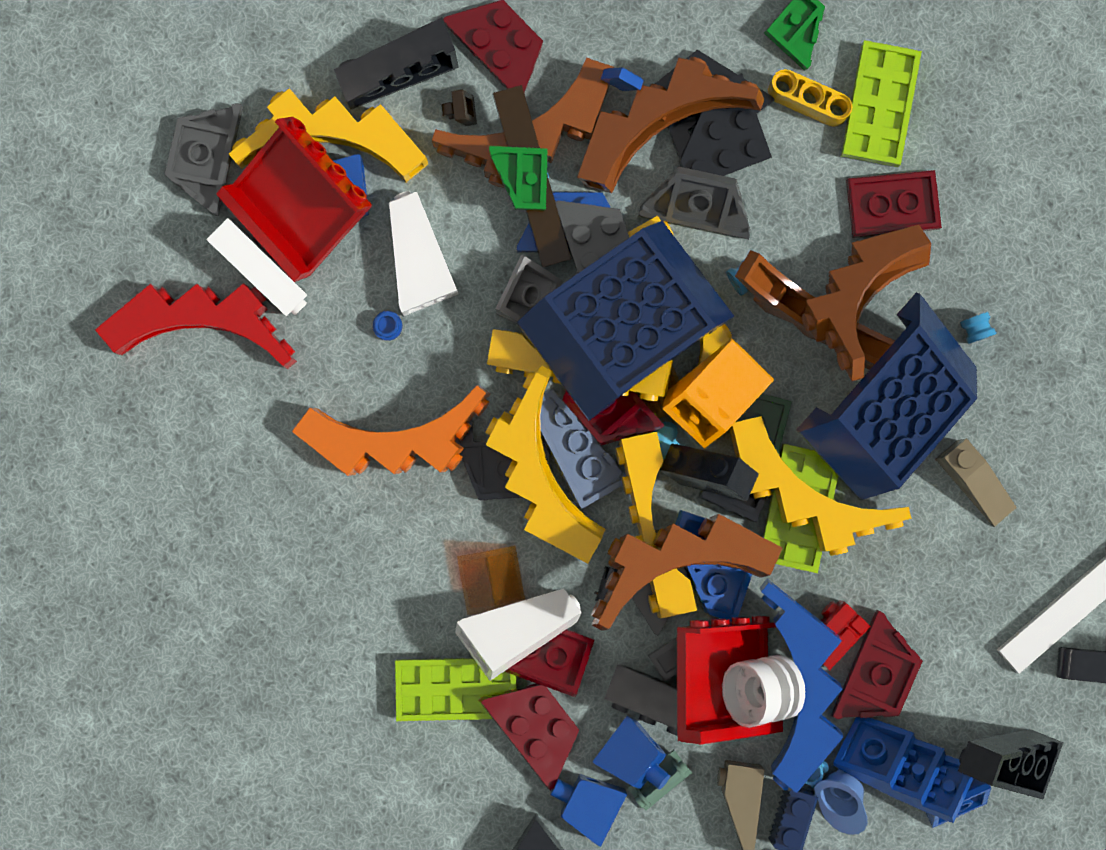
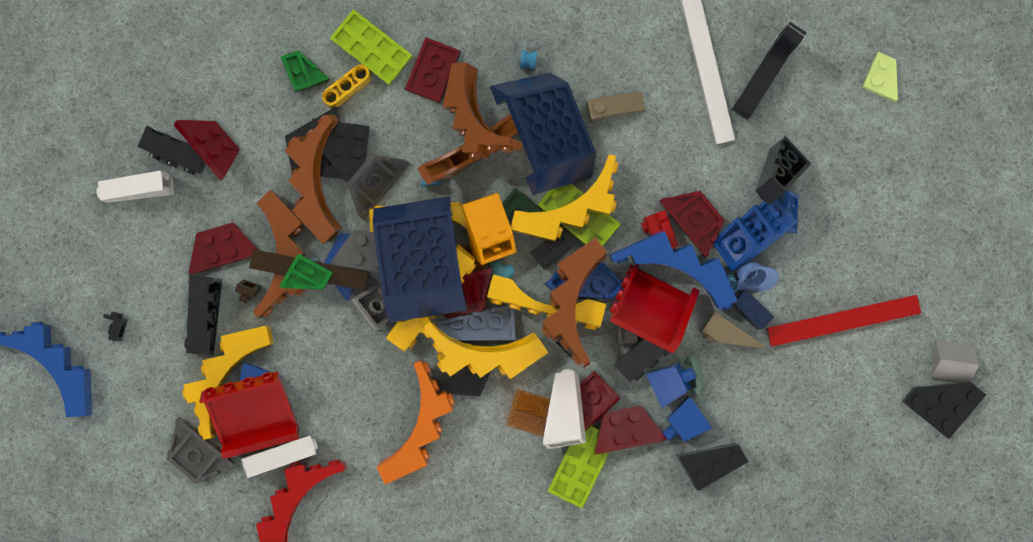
camera: 55 degrees left, 0 degrees up
(387, 325) = (352, 397): blue plate -> none
(419, 263) = (321, 359): white slope -> none
(622, 79) = (279, 189): blue tile -> none
(709, 471) = (531, 256): black brick -> none
(763, 690) = (670, 290): white wheel -> none

